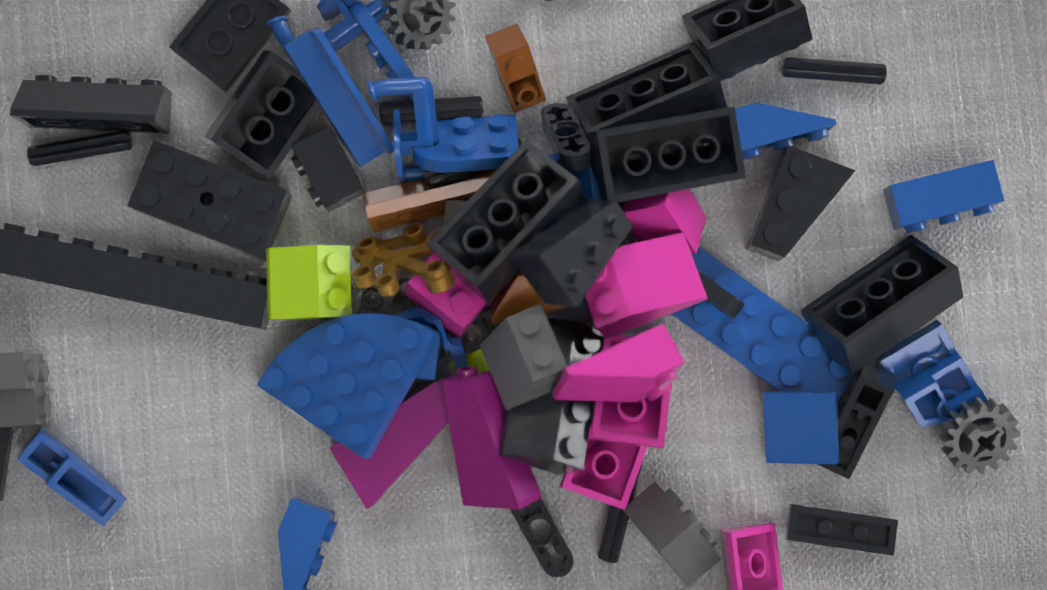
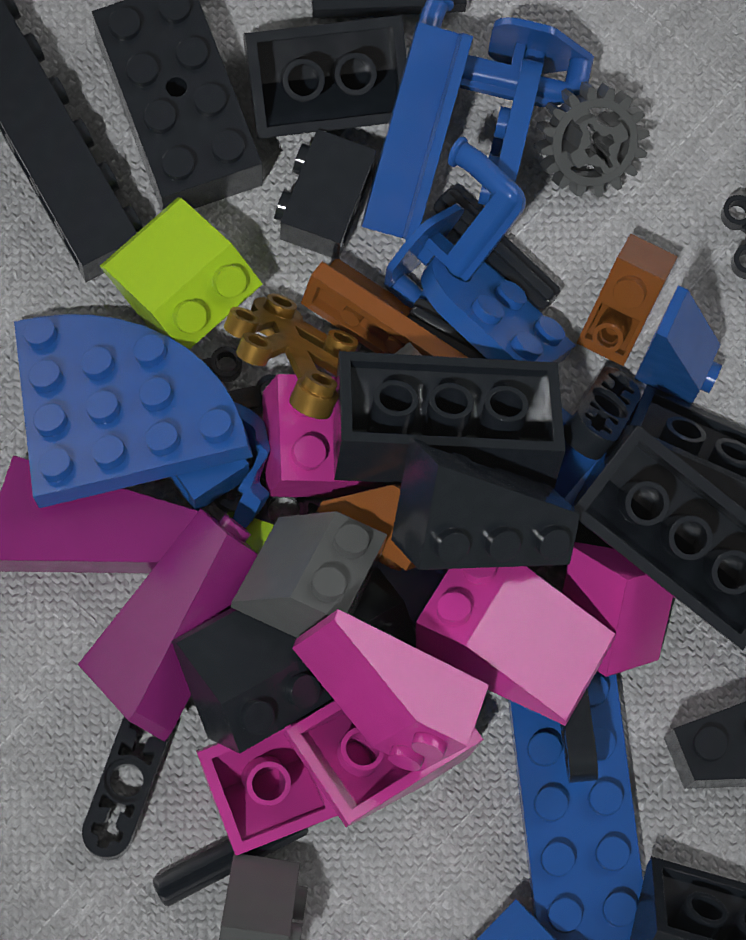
camera: 40 degrees right, 10 degrees down
(568, 68) = (681, 351): none -> blue slope

